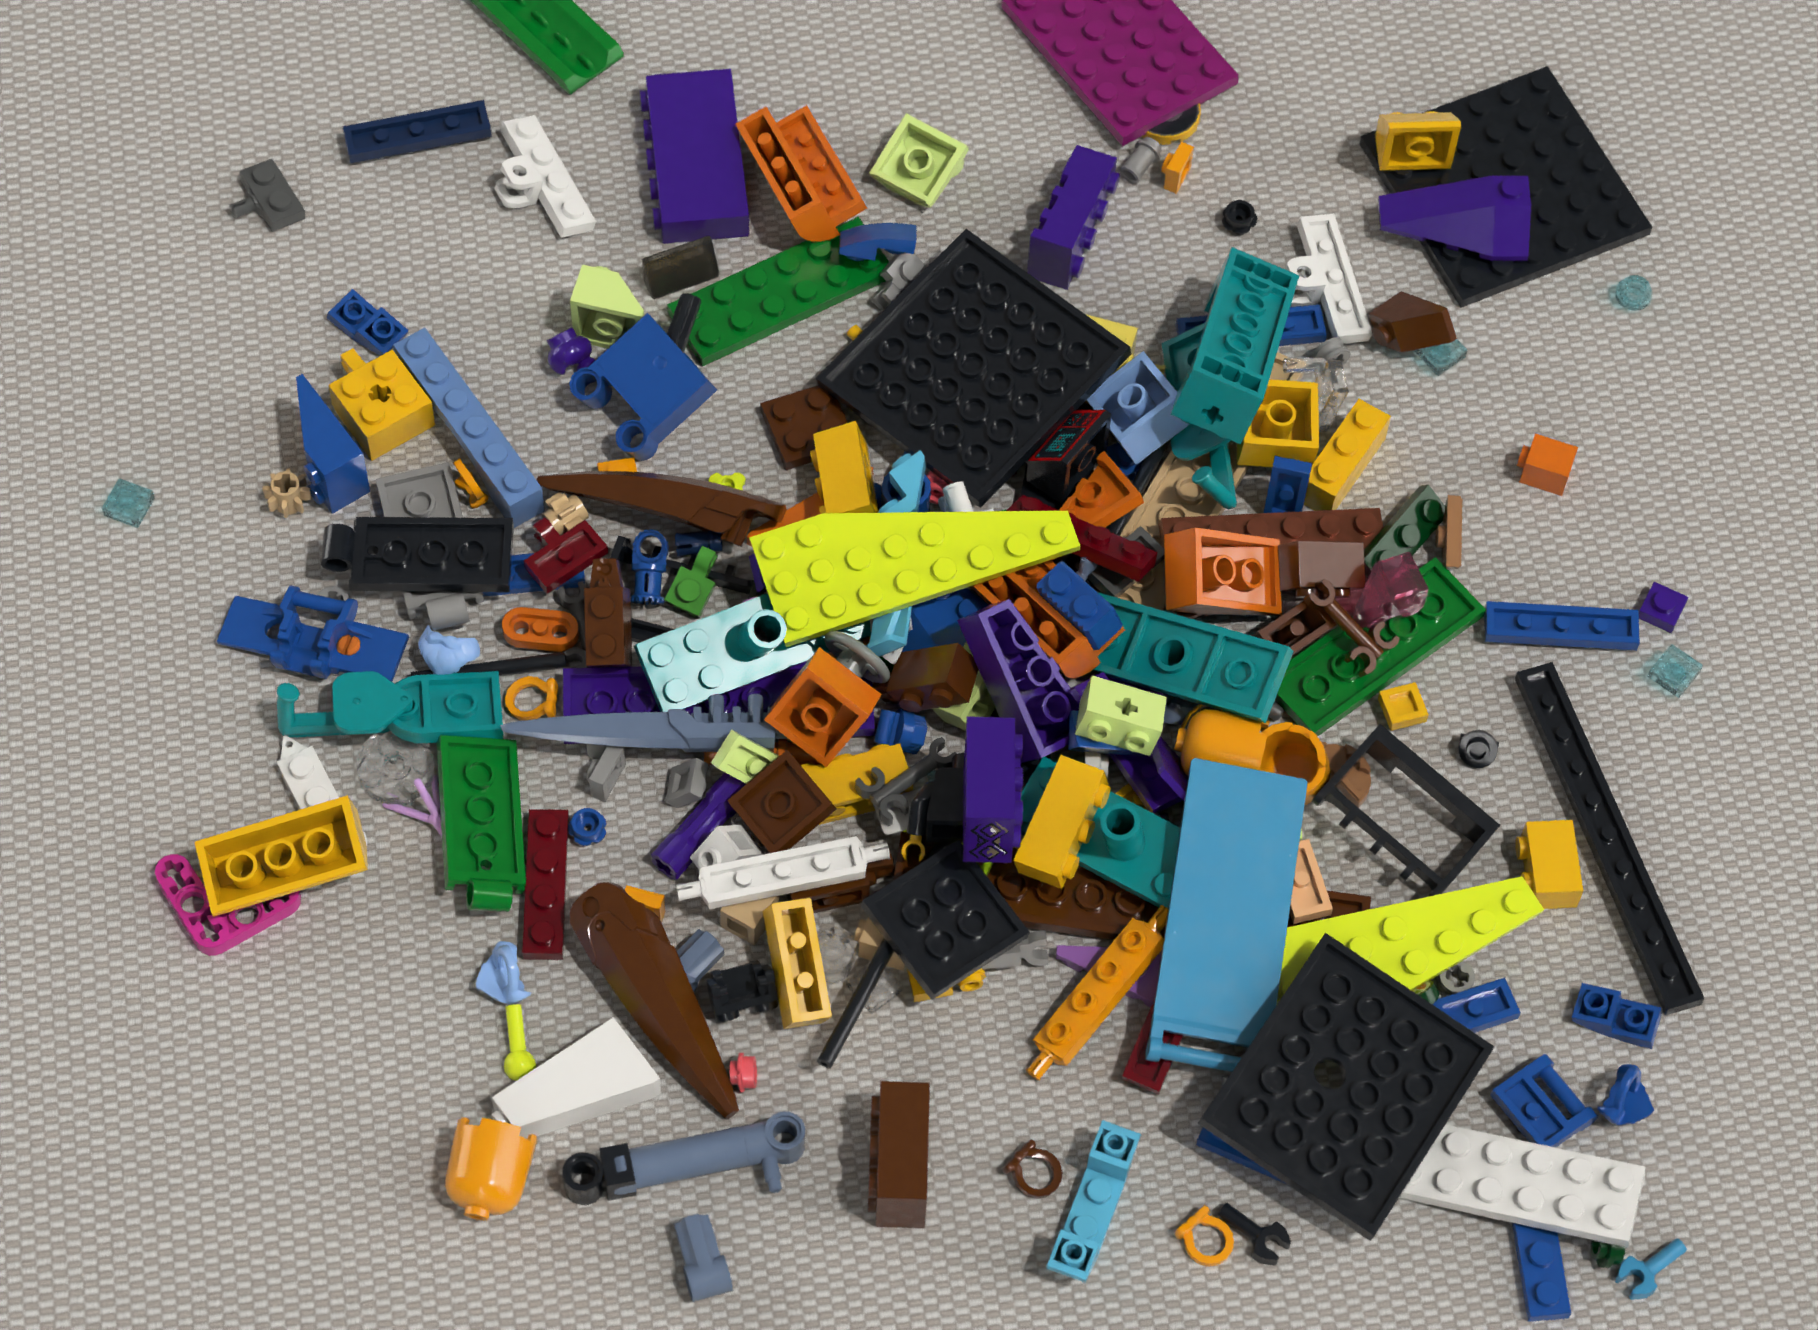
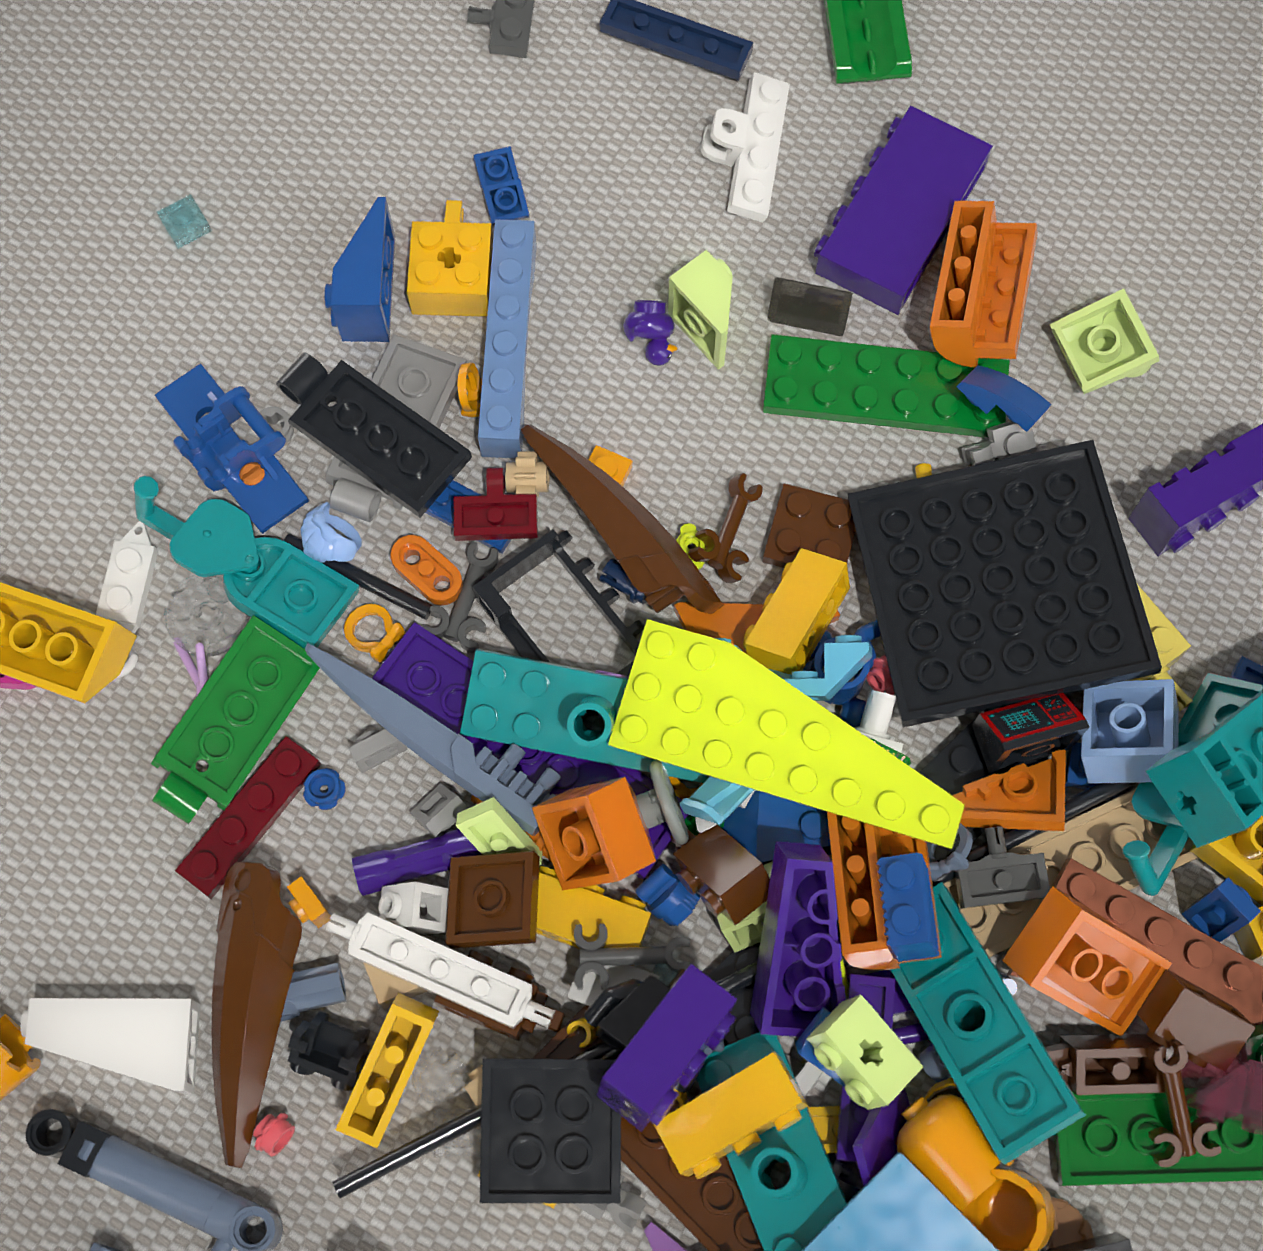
camera: 40 degrees right, 10 degrees up
(287, 493) = (309, 298): tan gear -> none
(501, 975) = (139, 882): light blue piece -> none
(518, 1061) = (97, 973): neon yellow bar -> none
(607, 617) = (474, 606): reddish brown hinge -> none
(648, 567) = (559, 578): blue connector -> none
(651, 376) = (694, 396): blue piece -> none
(691, 587) = (587, 621): bright green plate -> none
(746, 472) = (718, 546): none -> reddish brown bar
(1101, 545) = (977, 838): dark red plate -> none
(1403, 706) = (1176, 1219): yellow plate -> none

